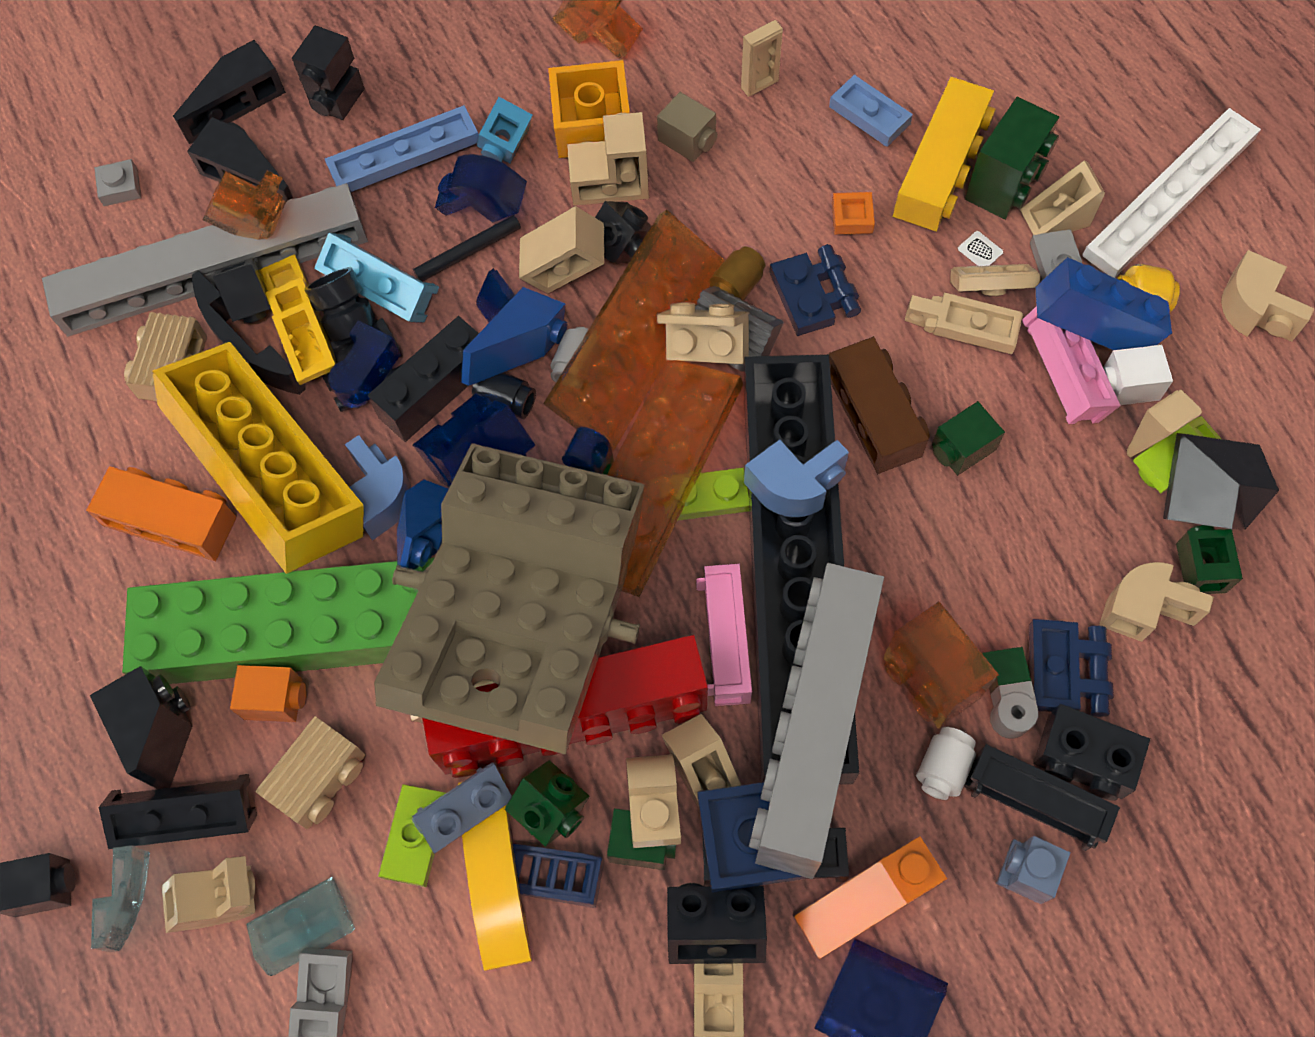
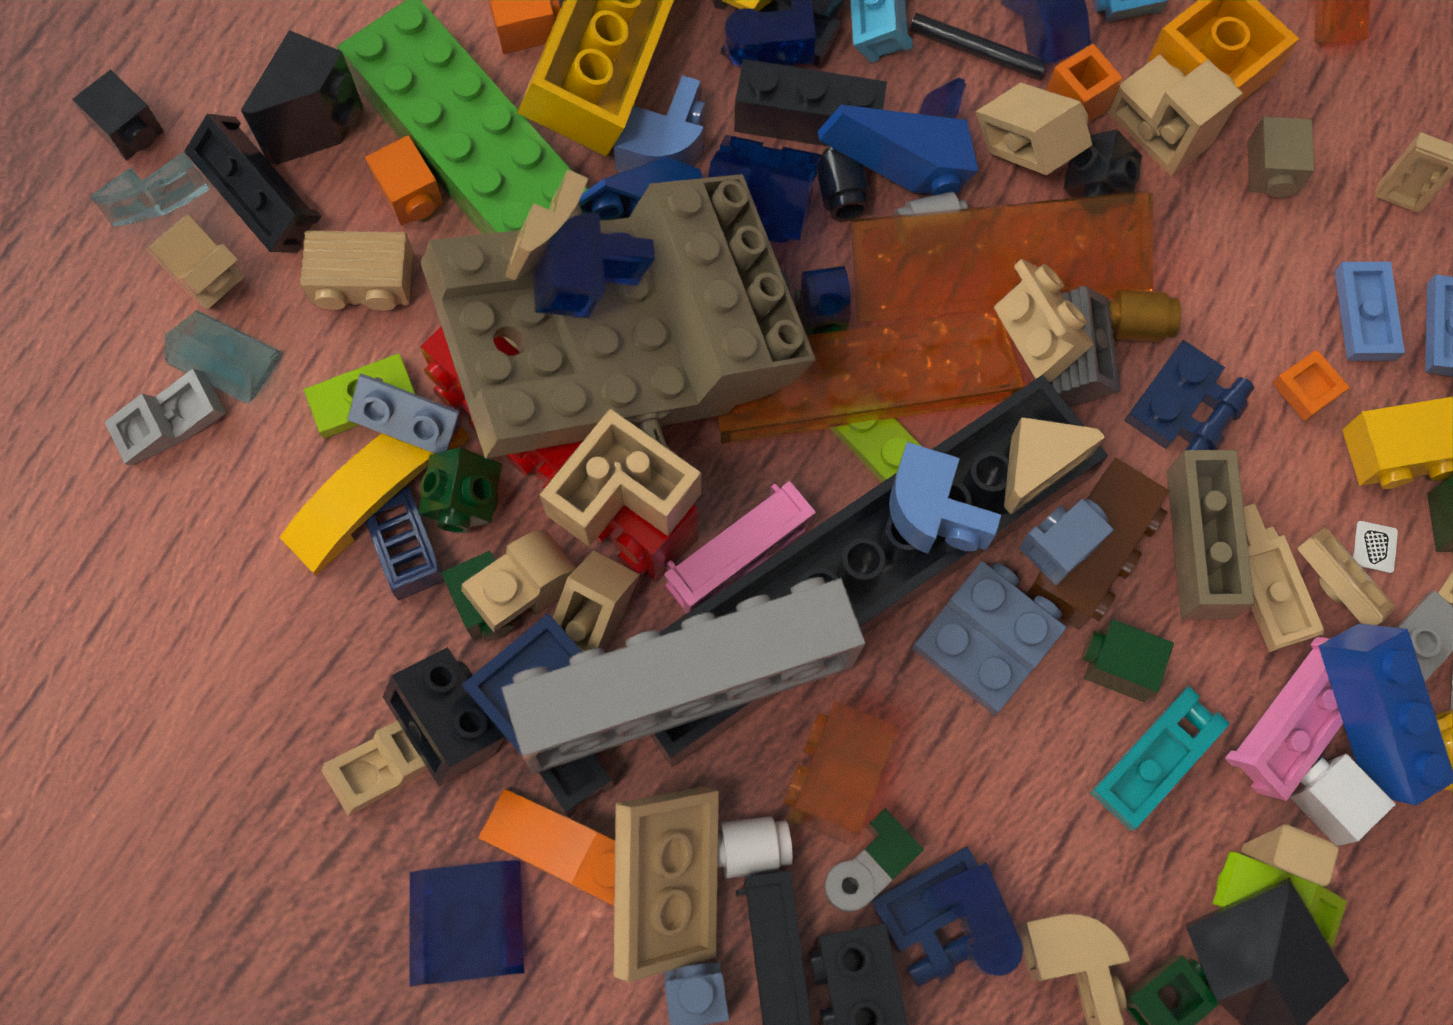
camera: 50 degrees right, 5 degrees up
(425, 592) = (543, 224): none -> tan slope
(470, 592) = (581, 260): none -> clear blue brick
(551, 197) = (1088, 79): none -> orange brick
(639, 662) = (617, 469): none -> tan brick
(807, 392) = (1044, 454): none -> tan slope
(826, 149) = (1369, 311): none -> medium blue plate
(872, 416) = (1066, 539): none -> sand blue brick
(894, 512) = (990, 636): none -> sand blue plate
(918, 334) = (1209, 535): none -> dark tan brick
(947, 834) = (665, 882): none -> tan plate
(1044, 464) = (1158, 759): none -> teal plate
(1092, 637) = (992, 938): none -> clear blue leg

